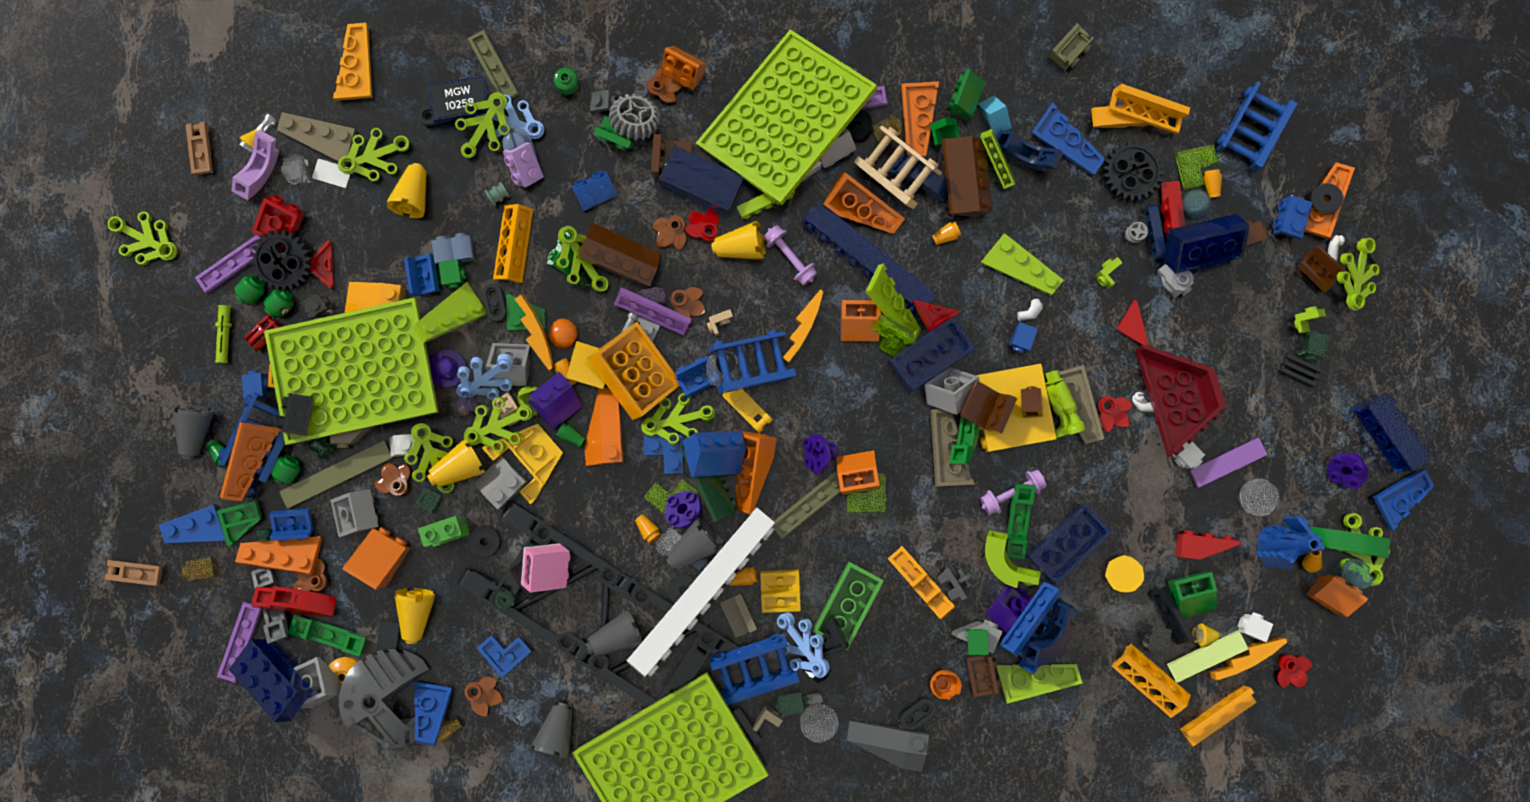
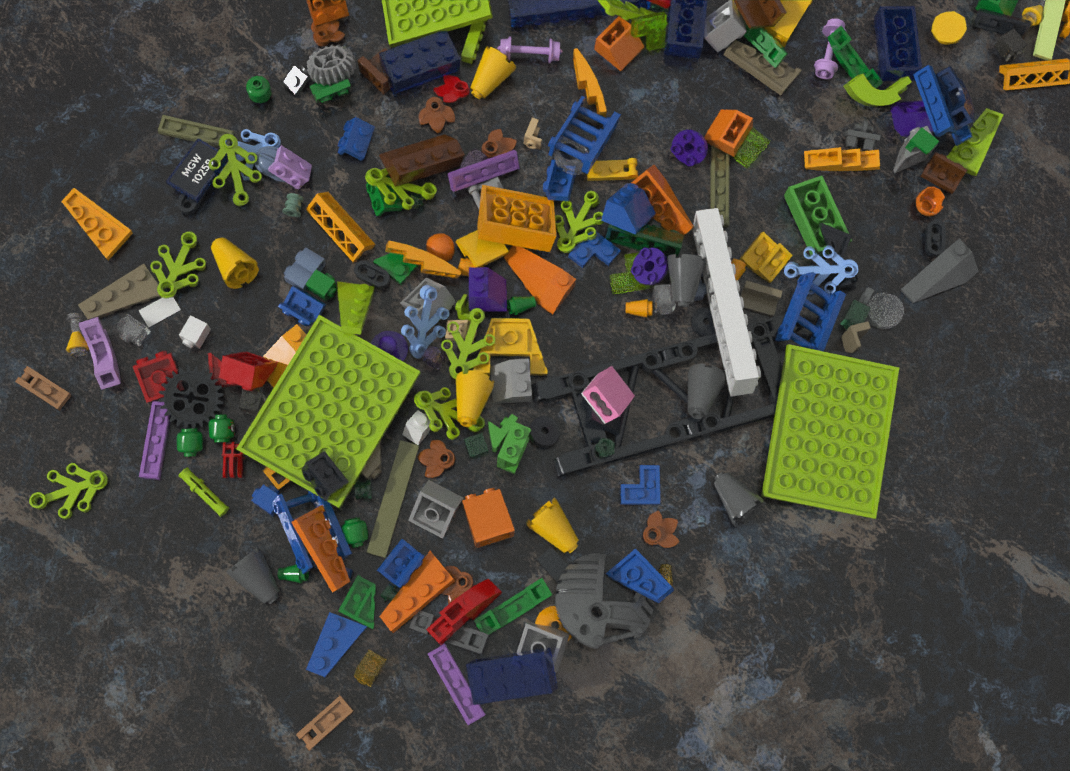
camera: 55 degrees left, 10 degrees down
(332, 216) = (194, 332): none -> white brick
(334, 281) = (246, 370): none -> red slope
(450, 509) = (498, 435): none -> bright green slope

